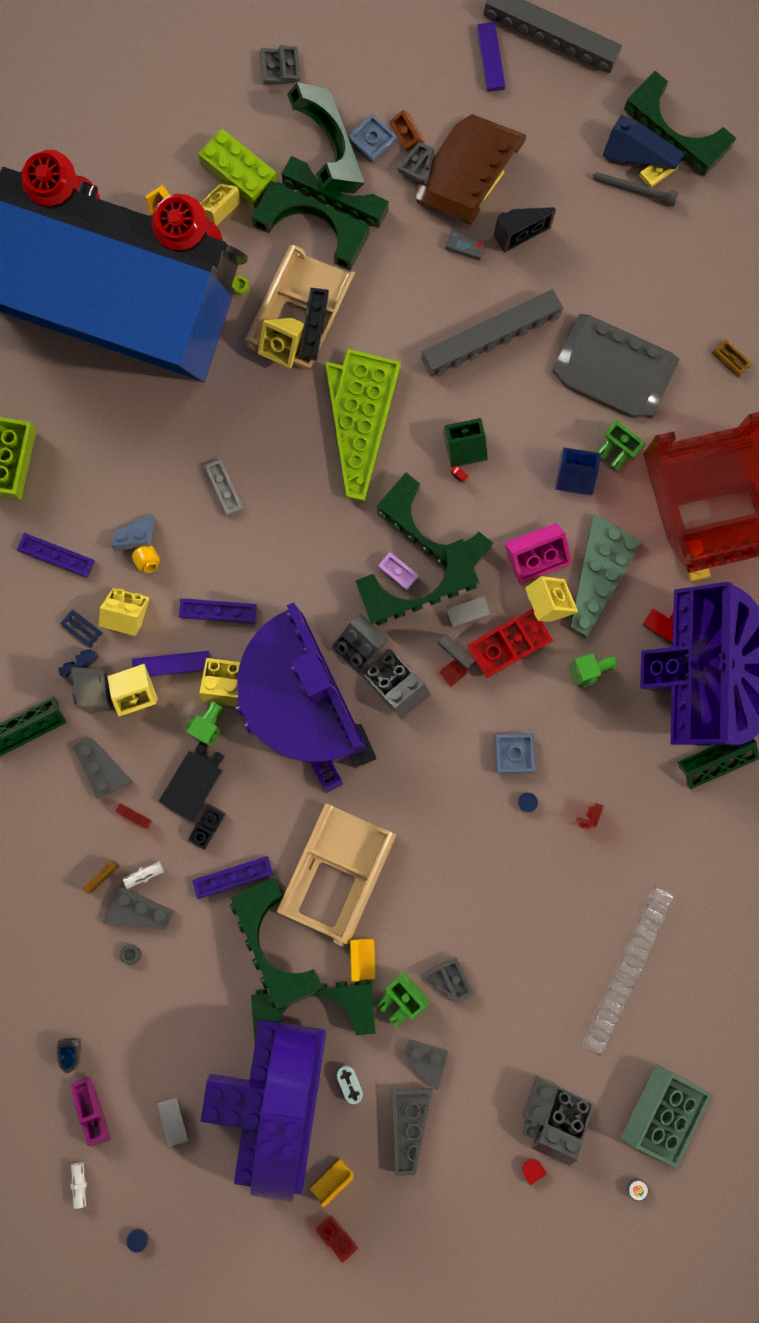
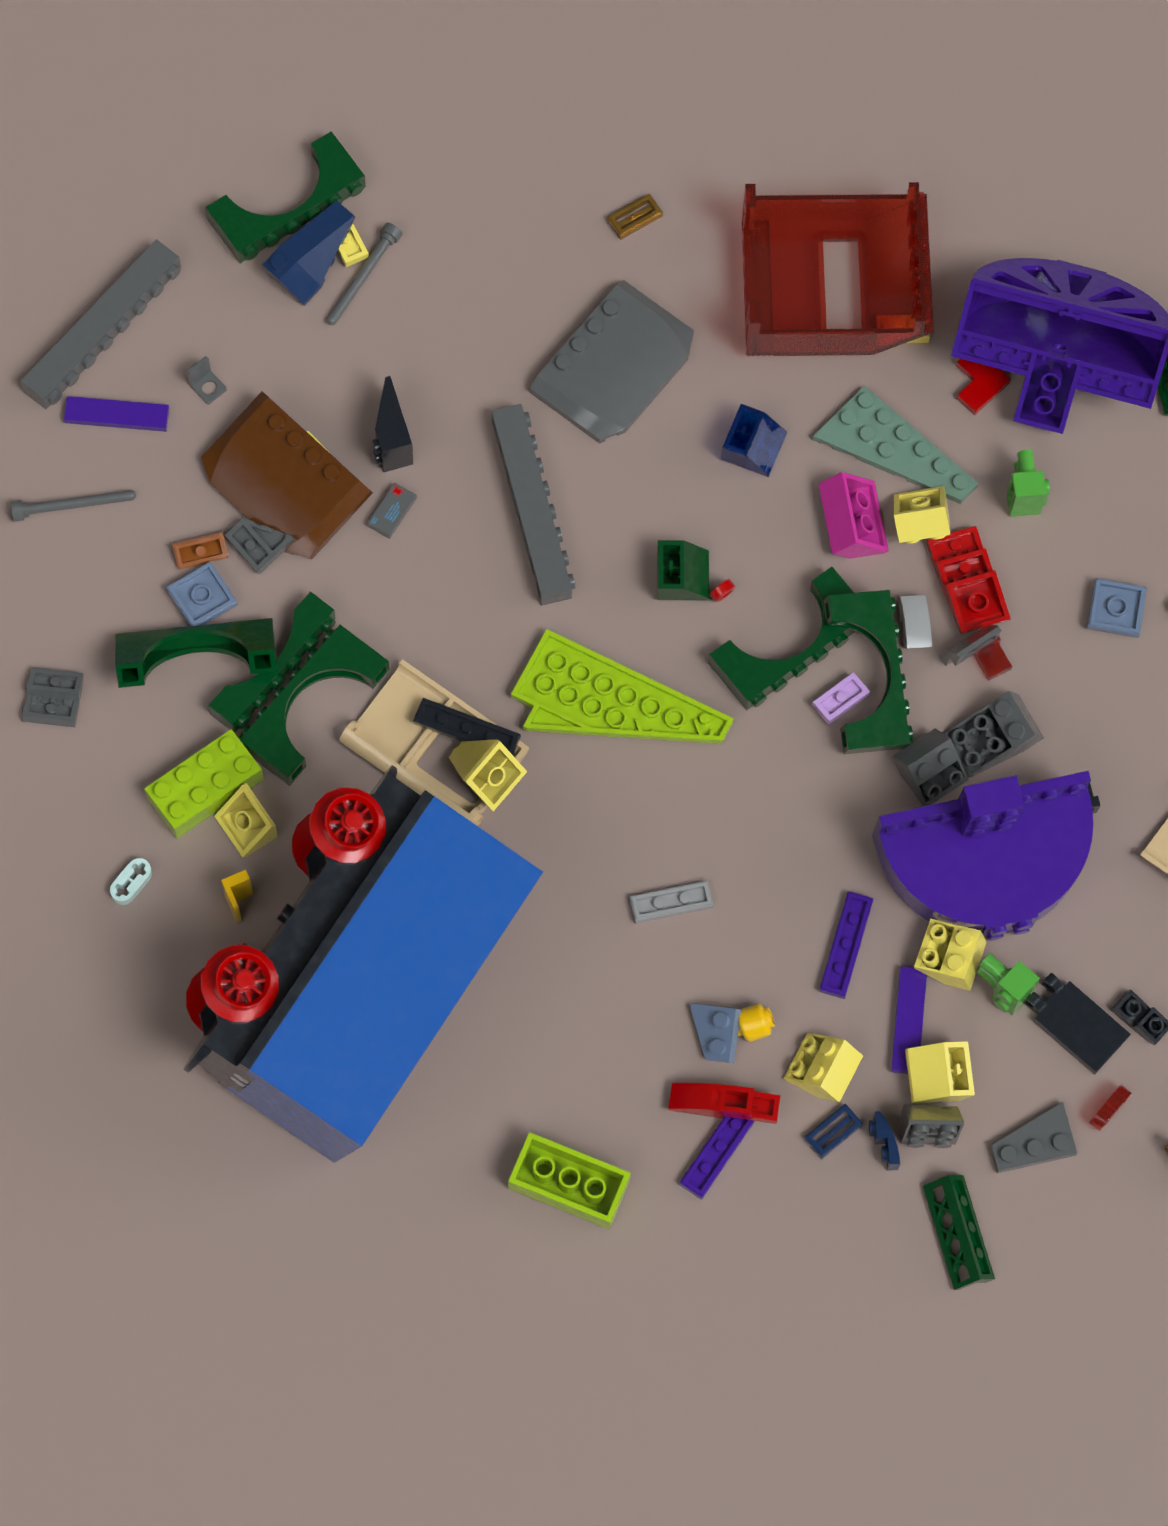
camera: 75 degrees left, 10 degrees down
(82, 549) = (724, 1100): none -> red slope
(163, 142) = (126, 877): none -> light aqua beam
(333, 784) = (1111, 855): dark purple slope -> none
(405, 13) = (22, 510): none -> dark grey piece
(532, 100) = (200, 374): none -> dark grey bracket
(625, 440) = (729, 369): bright green brick -> none

